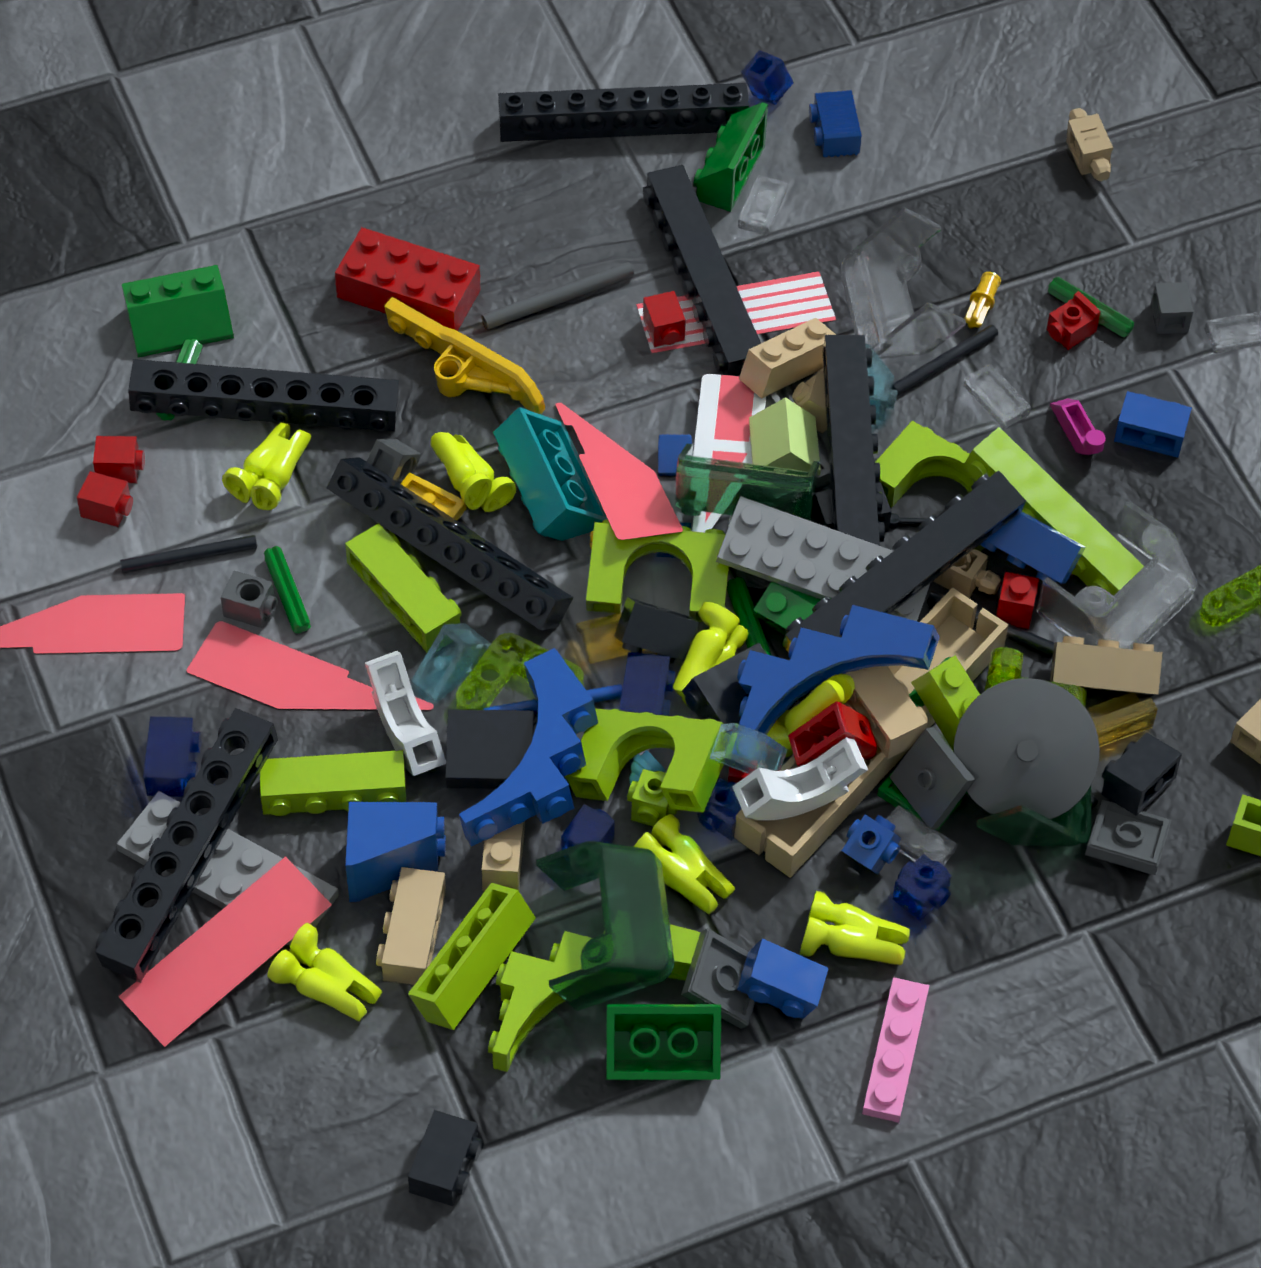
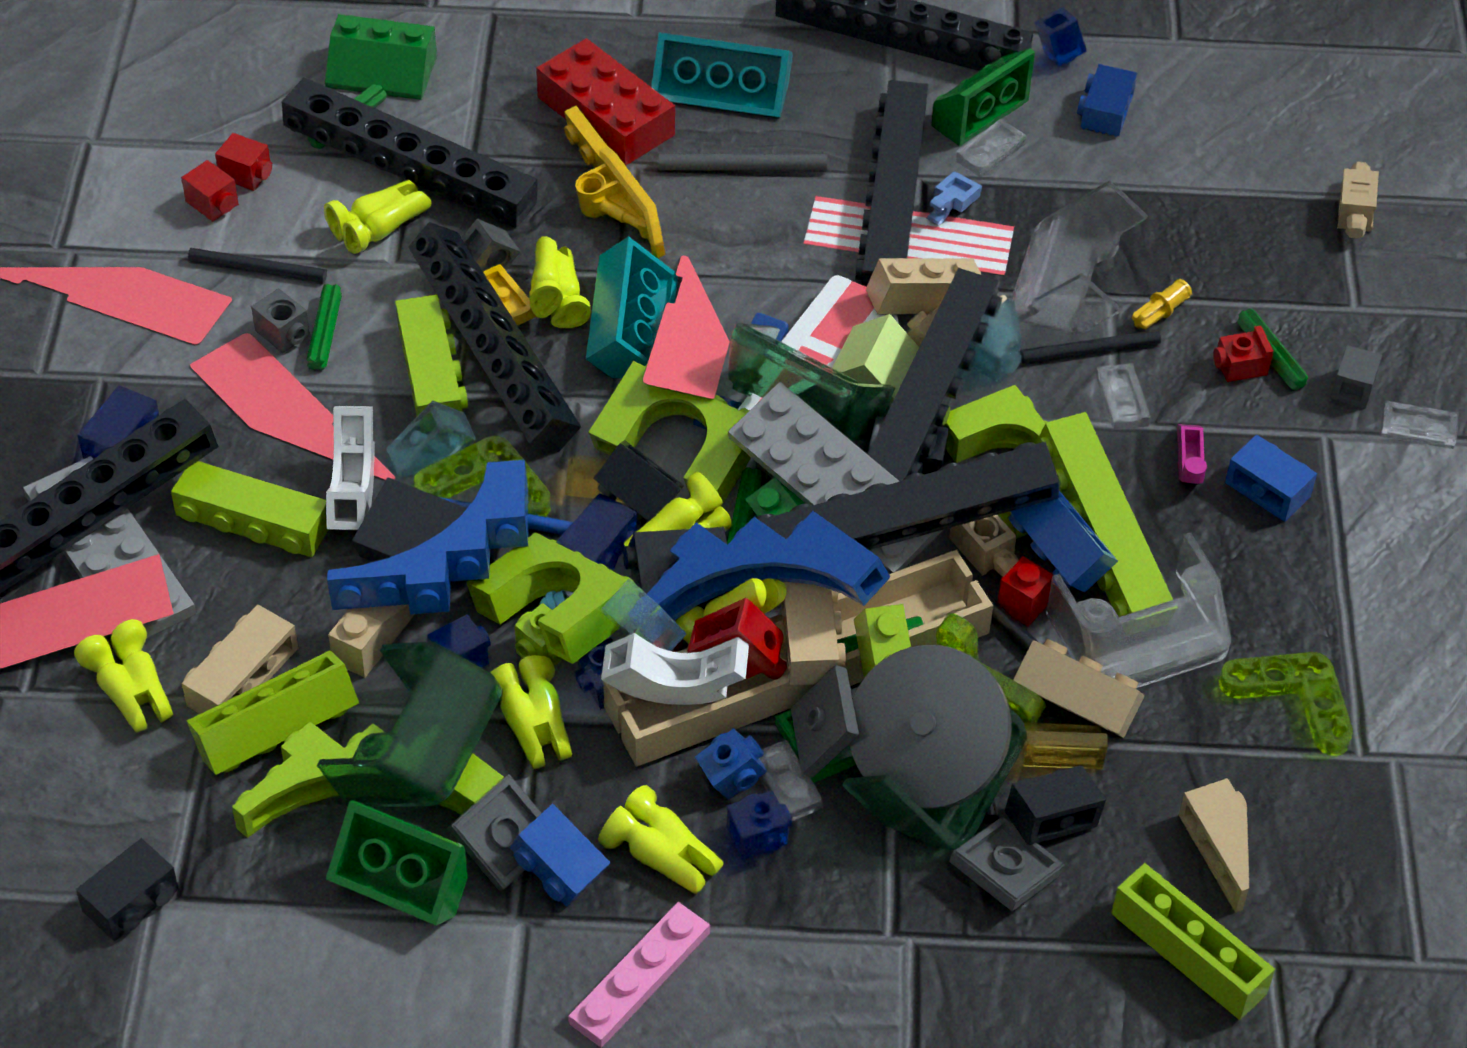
camera: 25 degrees right, 5 degrees down
(390, 837) = (257, 569): blue slope -> none
(494, 218) = (721, 74): none -> teal slope
(664, 319) = (828, 214): red brick -> none
(757, 259) = (953, 192): none -> medium blue plate

